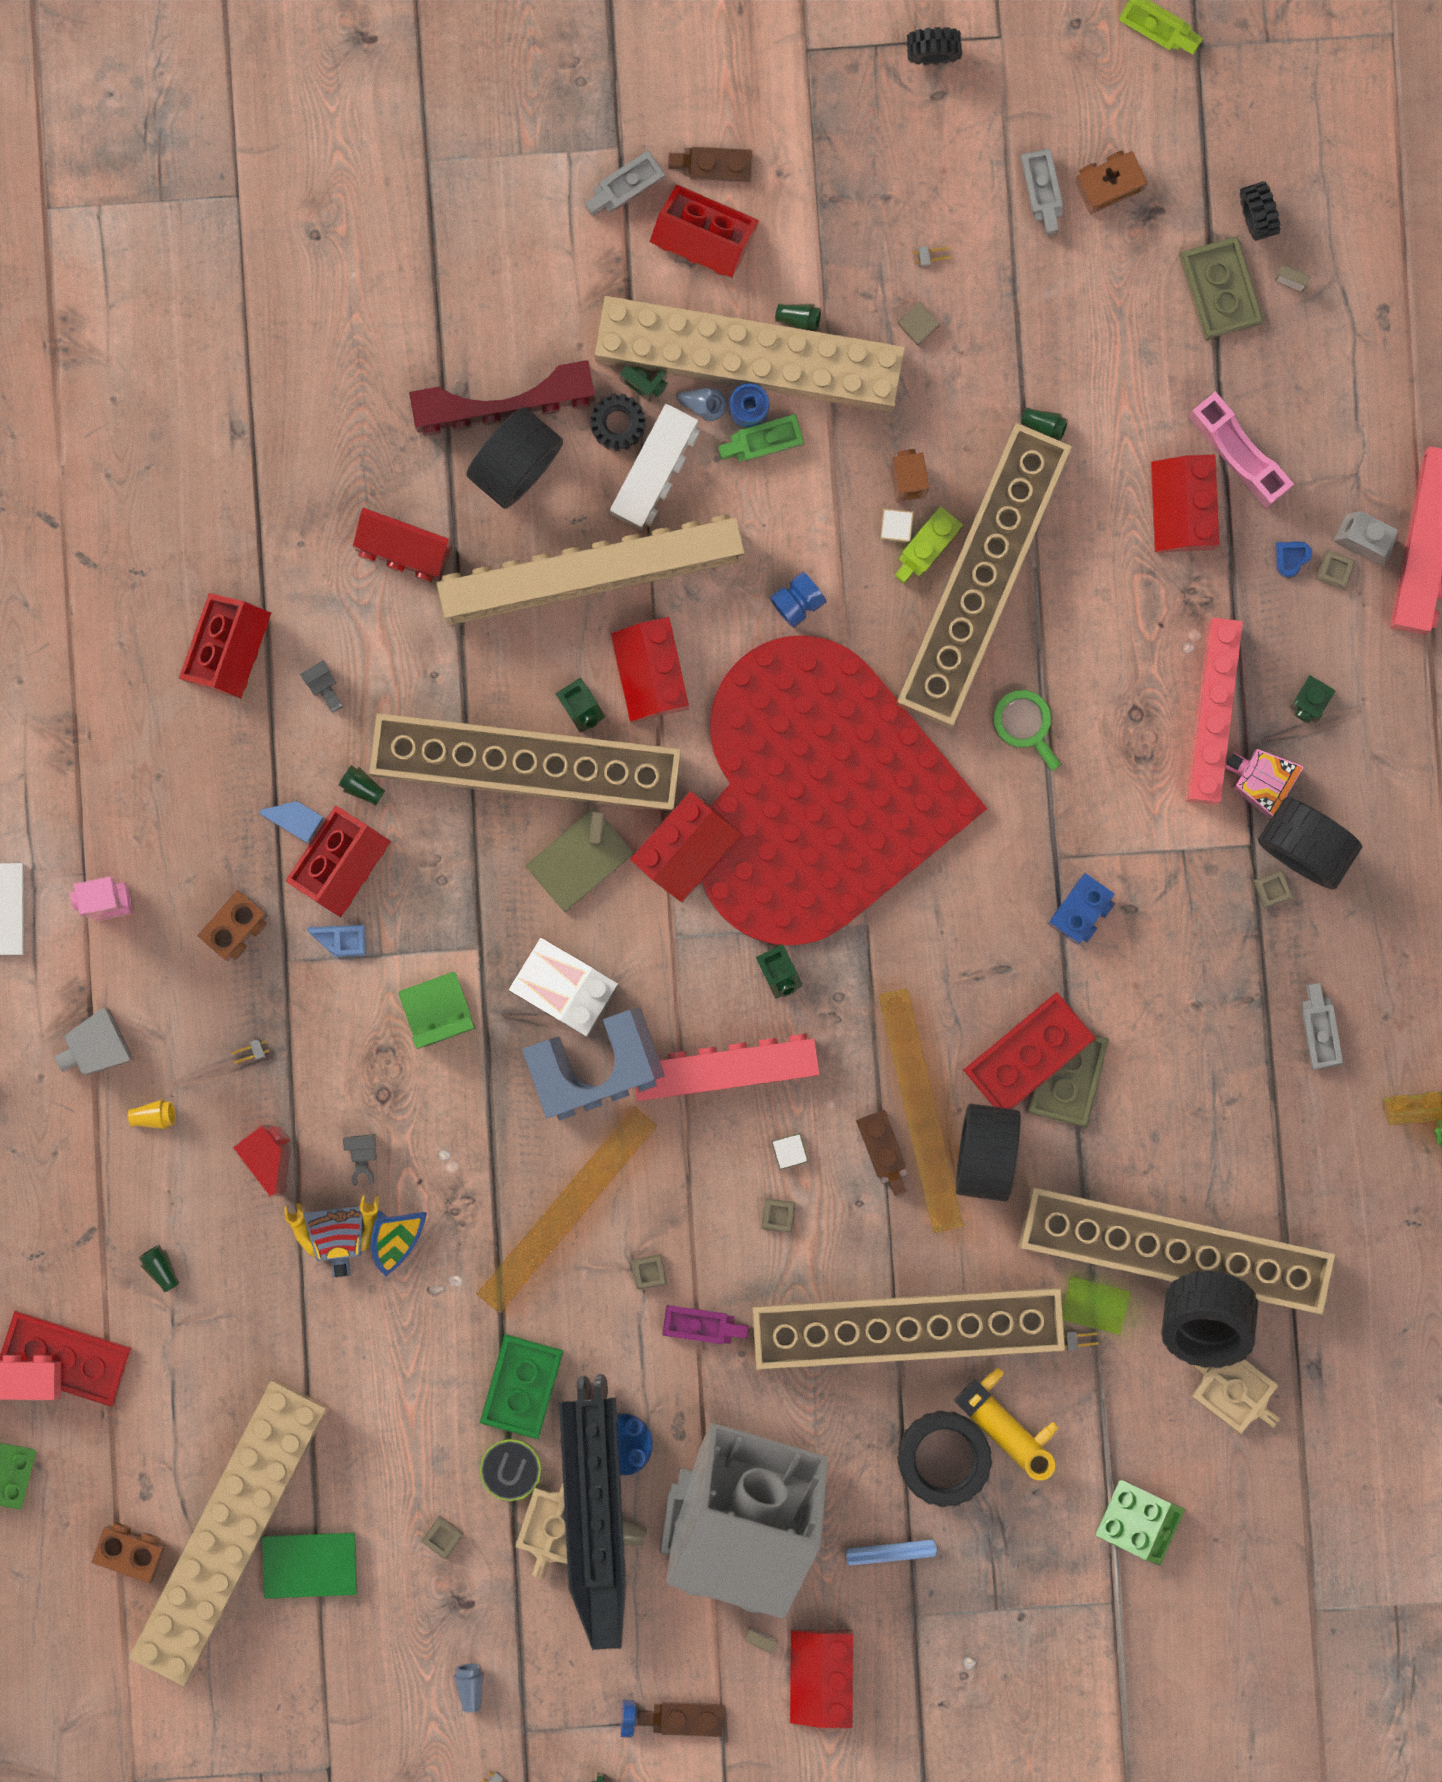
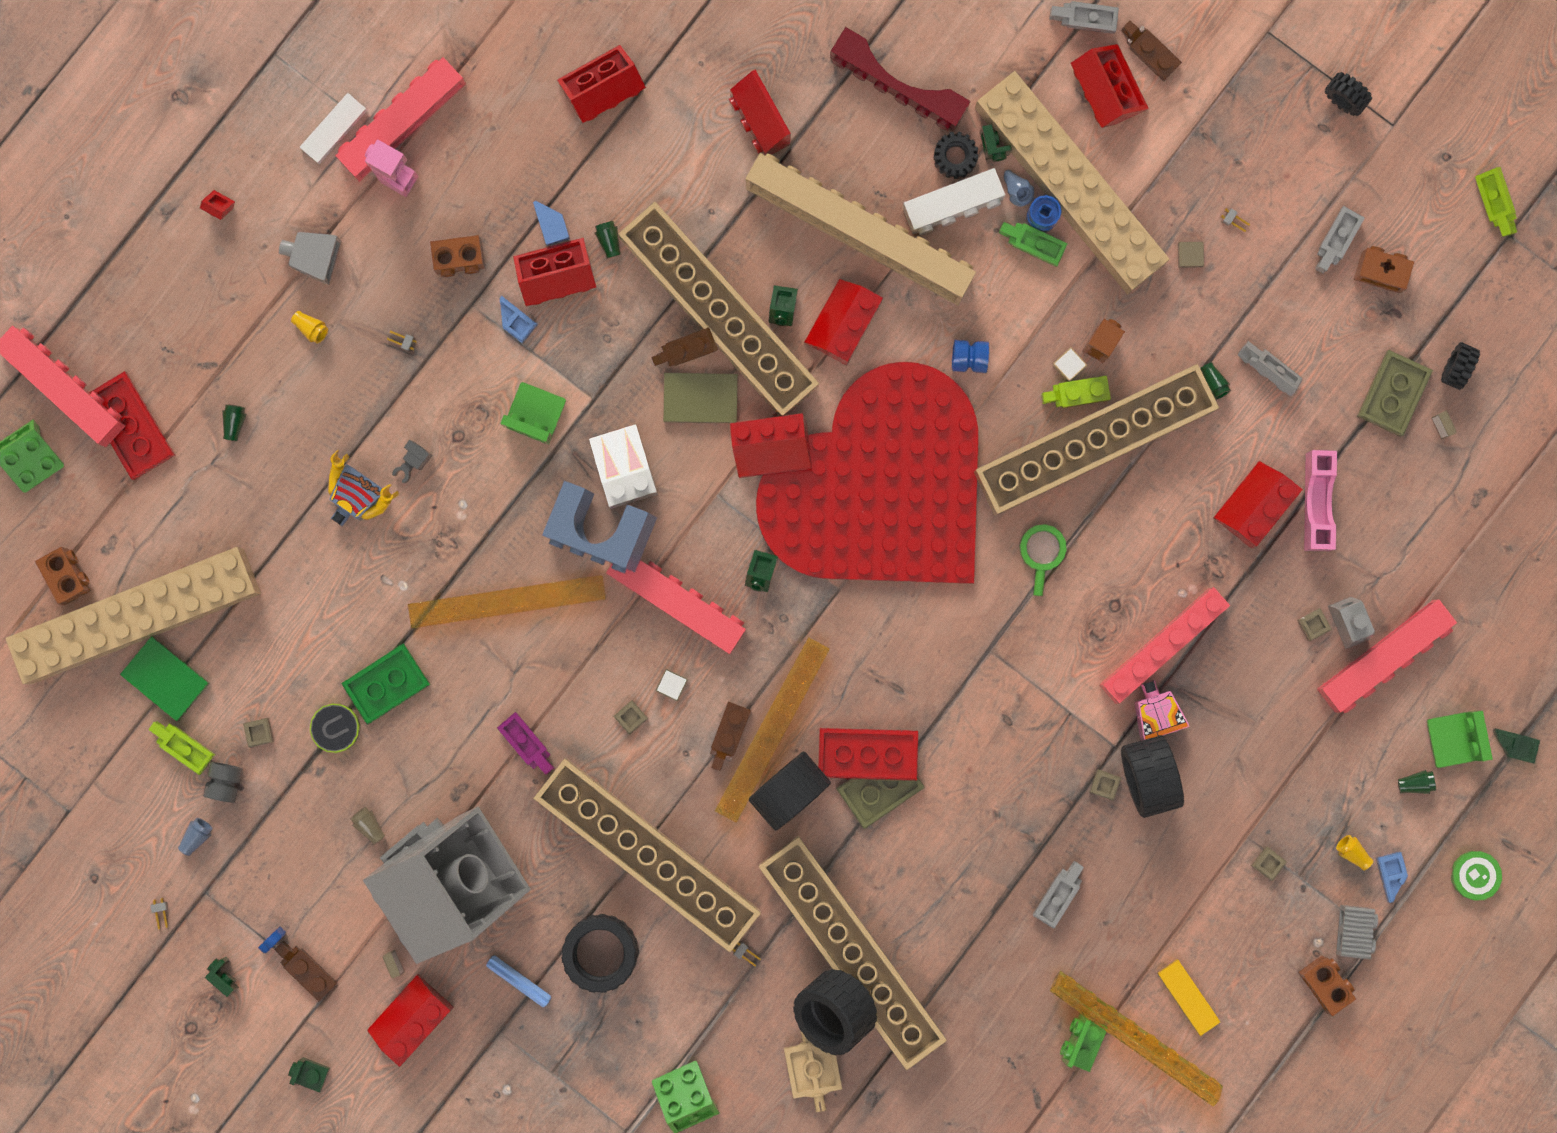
camera: 40 degrees right, 0 degrees up
(65, 843) = (403, 116): none -> coral brick
(267, 1157) = (352, 410): red slope -> none
(320, 681) = (639, 155): dark grey piece -> none
(383, 1613) = (182, 747): none -> lime hinge
(394, 1239) = (387, 527): shield -> none
(451, 1612) = (222, 782): none -> dark grey wheel
(514, 457) = (873, 120): black tyre -> none
(527, 824) = (686, 348): none -> reddish brown hinge
(544, 1529) = (330, 785): tan plate -> none
(594, 1512) = (360, 797): black hinge -> none
(597, 828) = (726, 387): dark tan tile -> none
(634, 1443) = (415, 772): blue dish -> none
(649, 1271) = (523, 682): dark tan tile -> none
(799, 316) = (1122, 186): dark green cone -> none
(1003, 1427) = (652, 966): yellow piece -> none
(1081, 909) = (977, 694): blue brick -> none
(1086, 365) = (1271, 368): none -> light grey hinge
(1095, 1305) = (774, 941): clear neon green plate -> none
(1291, 557) = (1294, 593): blue tile -> none
(1312, 700) = (1230, 691): dark green bracket -> none

